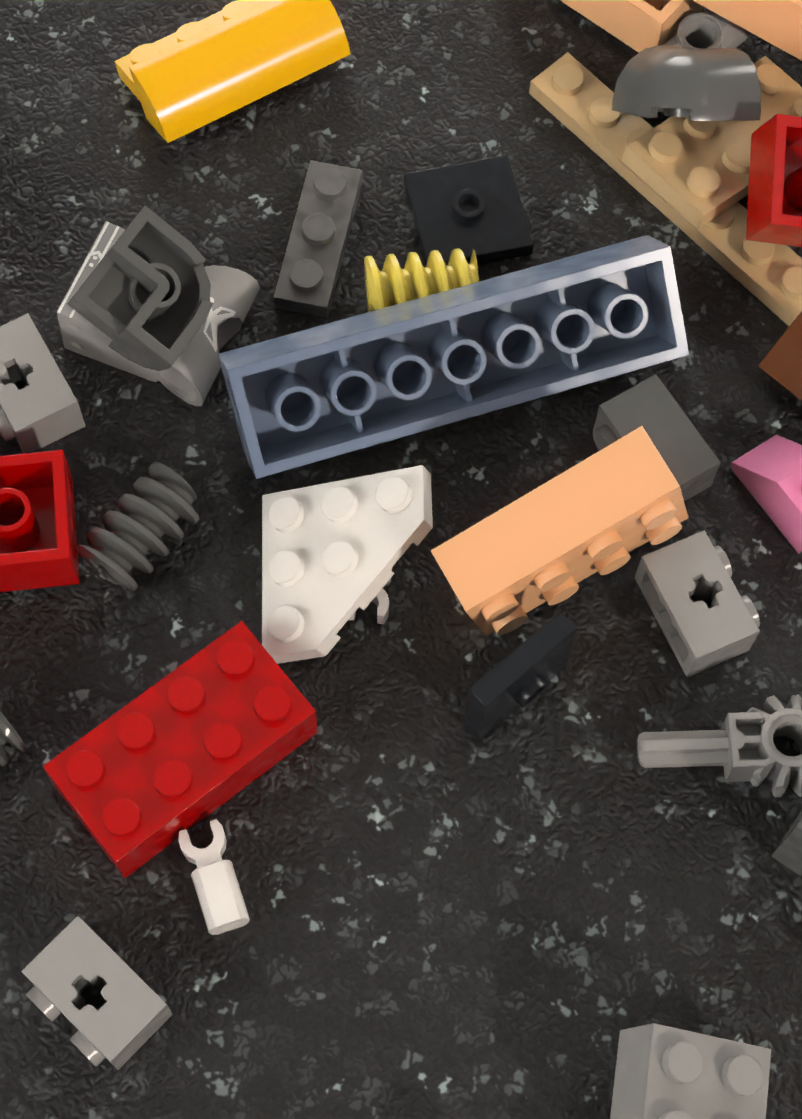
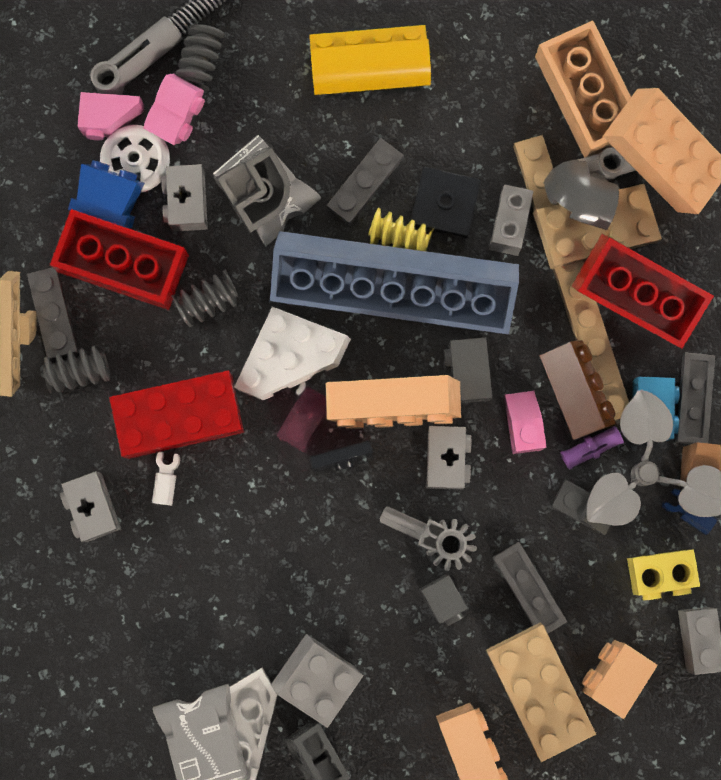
camera: 30 degrees right, 15 degrees up
(417, 659) = (304, 420): none -> clear pink slope
(591, 187) = (511, 220): none -> light grey brick

